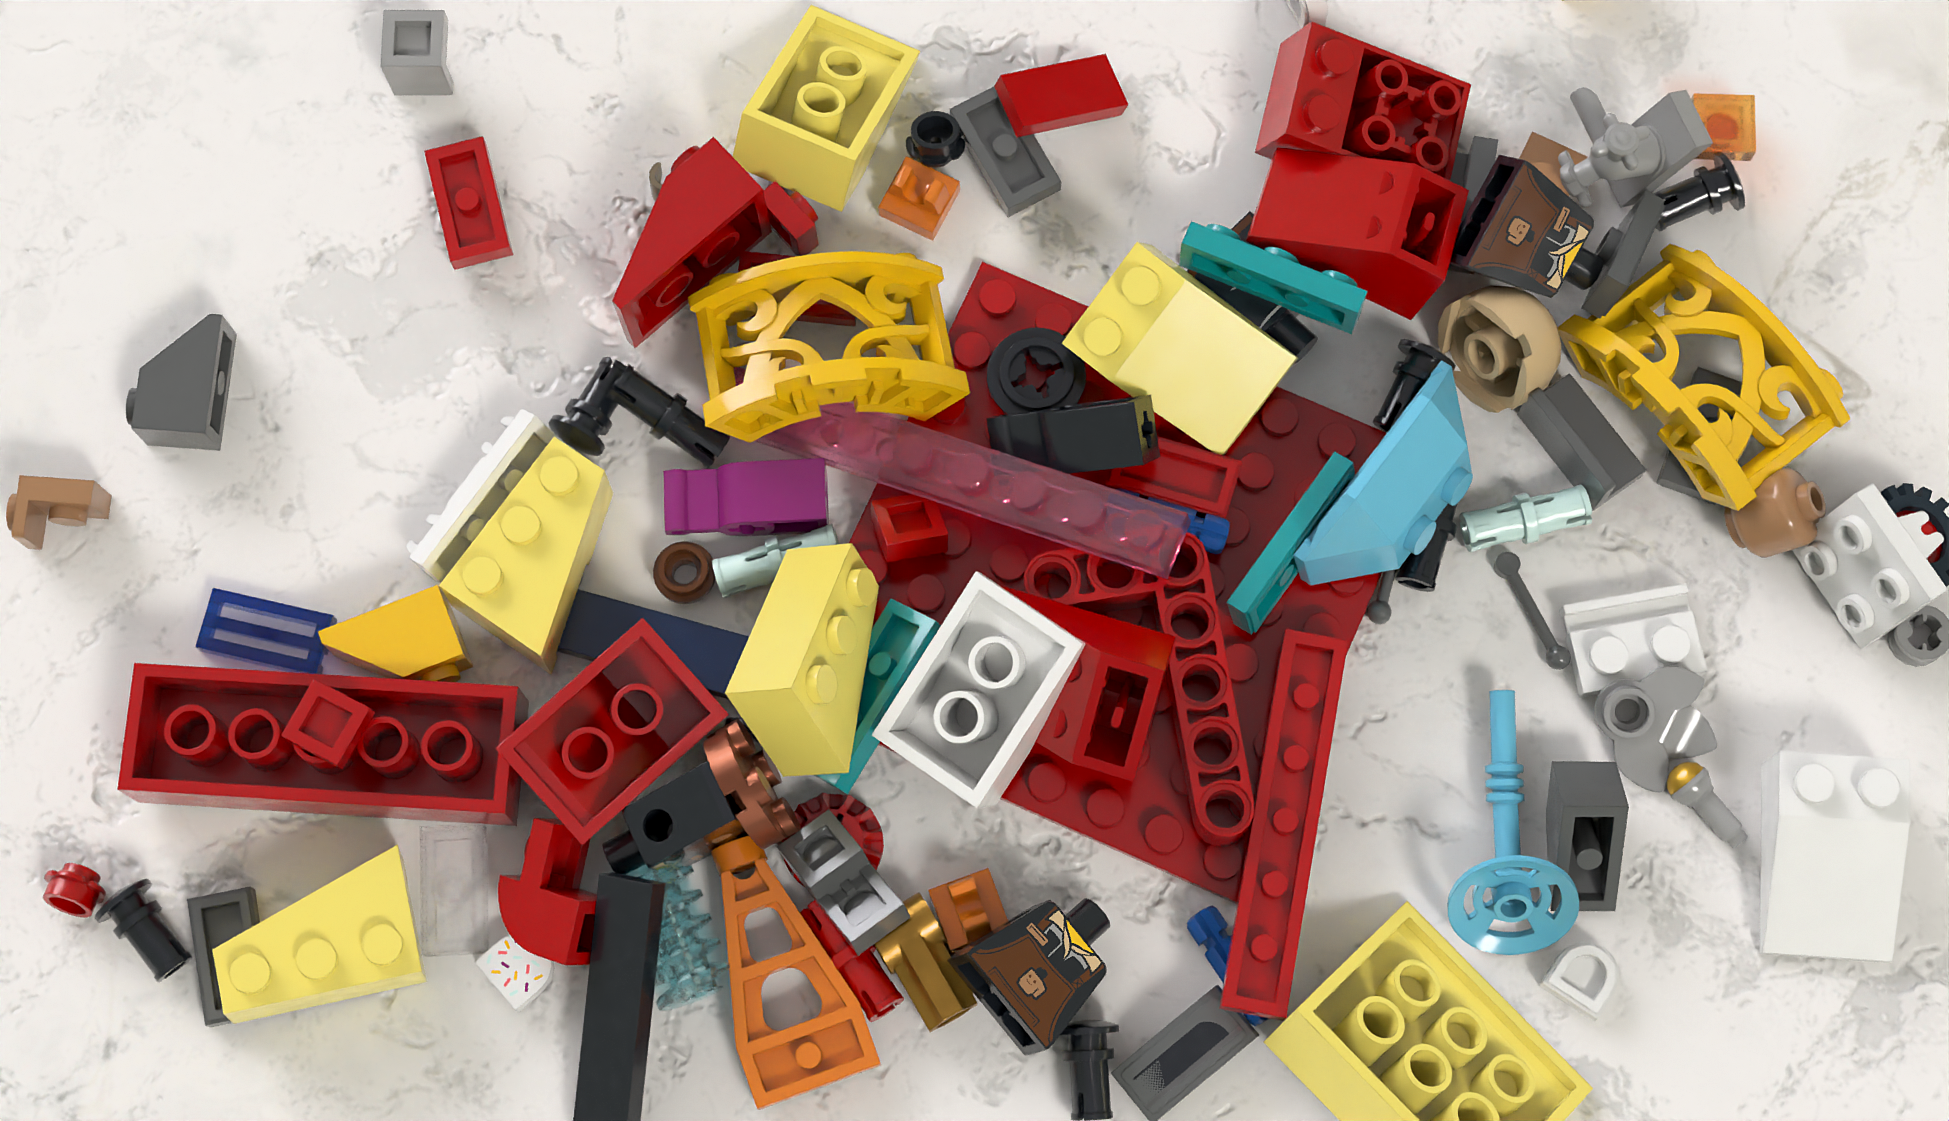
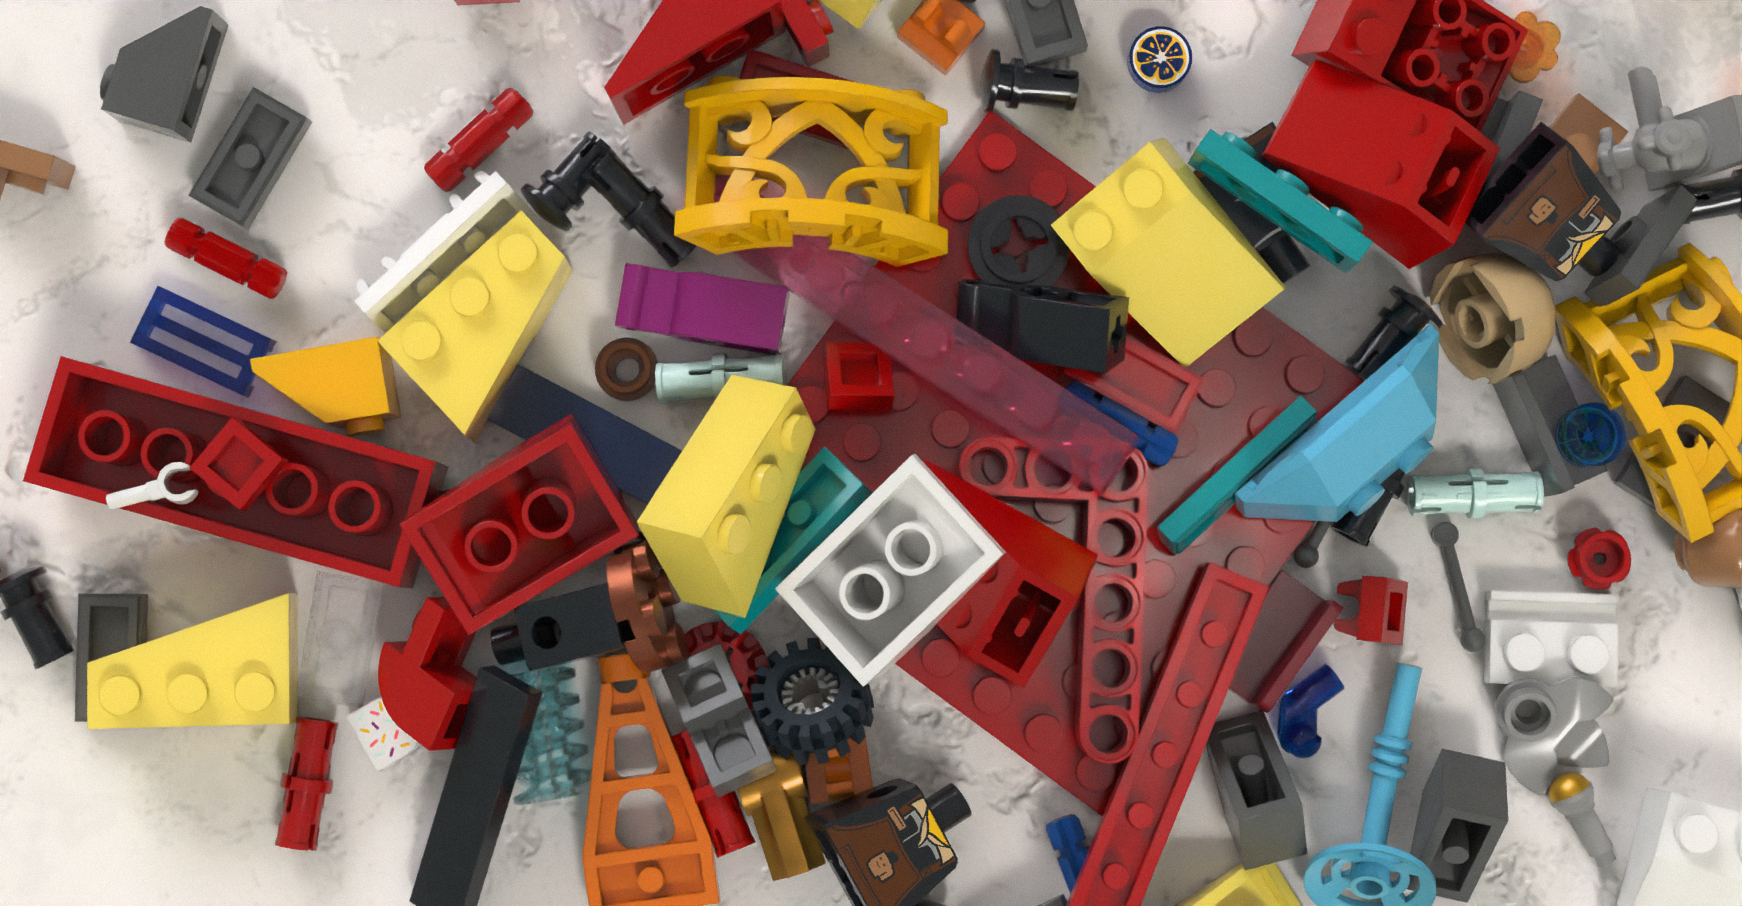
camera: 10 degrees right, 10 degrees up
(251, 767) = (153, 490): none -> white hand
(274, 549) = (225, 258): none -> red axle
(281, 450) = (250, 158): none -> dark grey plate
(447, 1037) = (306, 783): none -> red pin
(498, 388) = (478, 139): none -> red axle
(918, 820) = (800, 730): none -> black bush
(1011, 230) = (1026, 84): none -> black pin
(1132, 182) = (1159, 59): none -> clear blue tile
(1369, 695) = (1281, 641): none -> dark red panel
(1383, 843) = (1256, 791): none -> dark grey slope
(1407, 760) = (1300, 712): none -> clear blue arm
(1461, 645) = (1380, 609): none -> red tile
(1486, 95) = (1540, 42): none -> clear orange plant
(1621, 438) = (1590, 435): none -> tile
(1667, 540) = (1616, 558): none -> red plate

